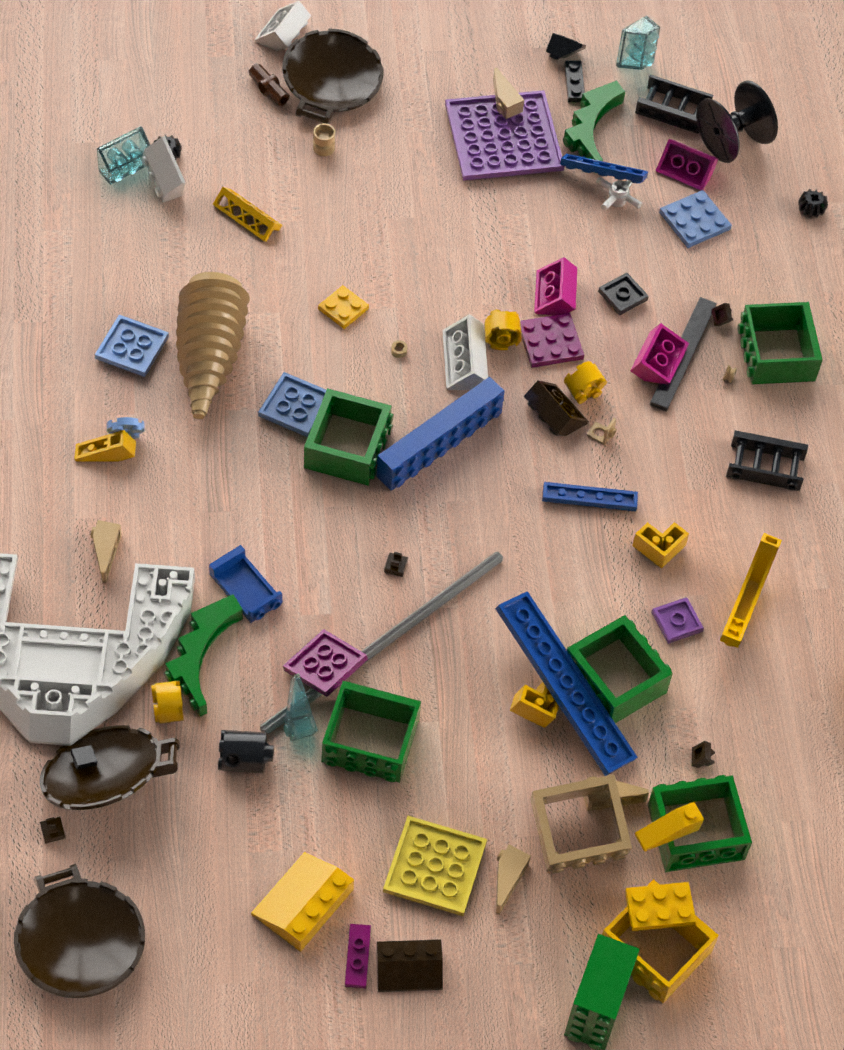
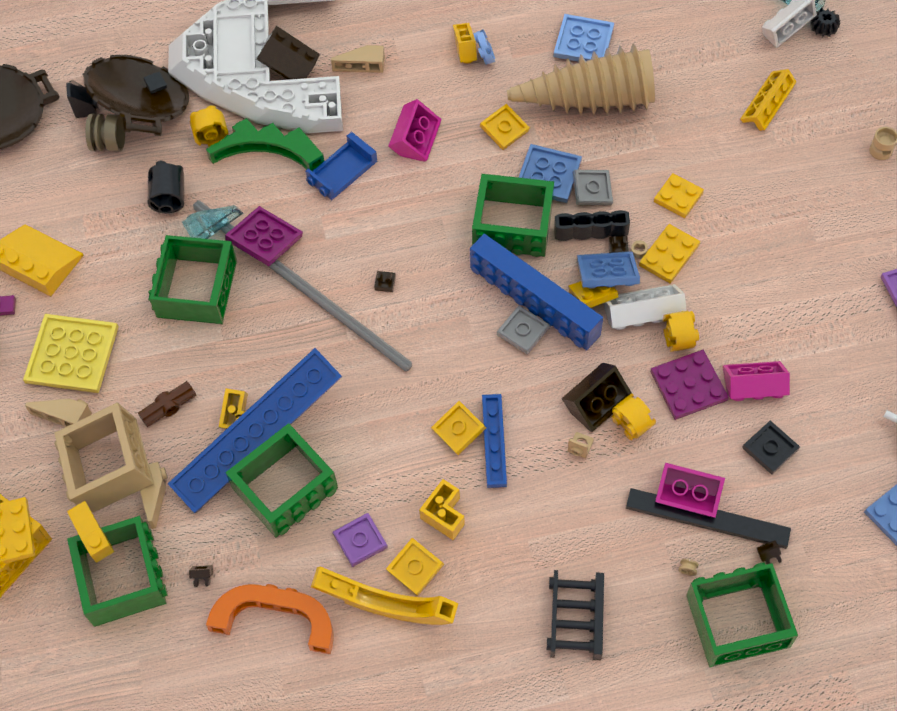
camera: 90 degrees right, 5 degrees up
(86, 840) = (80, 100): none -> black slope
(93, 609) = (287, 55): none -> dark brown slope
(151, 810) = (105, 132): none -> dark tan wheel
(215, 512) = (415, 131): none -> dark pink slope
(227, 432) = (504, 126): none -> yellow plate
(322, 370) = (592, 187): none -> light grey plate
(371, 370) = (588, 225): none -> black brick
(392, 364) = (618, 244): none -> dark brown tile
(408, 326) = (669, 253): none -> yellow plate
(426, 371) = (608, 269): none -> medium blue plate
(443, 389) = (592, 296): none -> yellow plate
(474, 455) = (523, 329): none -> light grey plate
(511, 773) = (167, 404): none -> reddish brown piece
(574, 521) = (458, 428): none -> yellow plate
(710, 577) = (414, 566): none -> yellow plate
(736, 731) = (272, 598): none -> orange arch

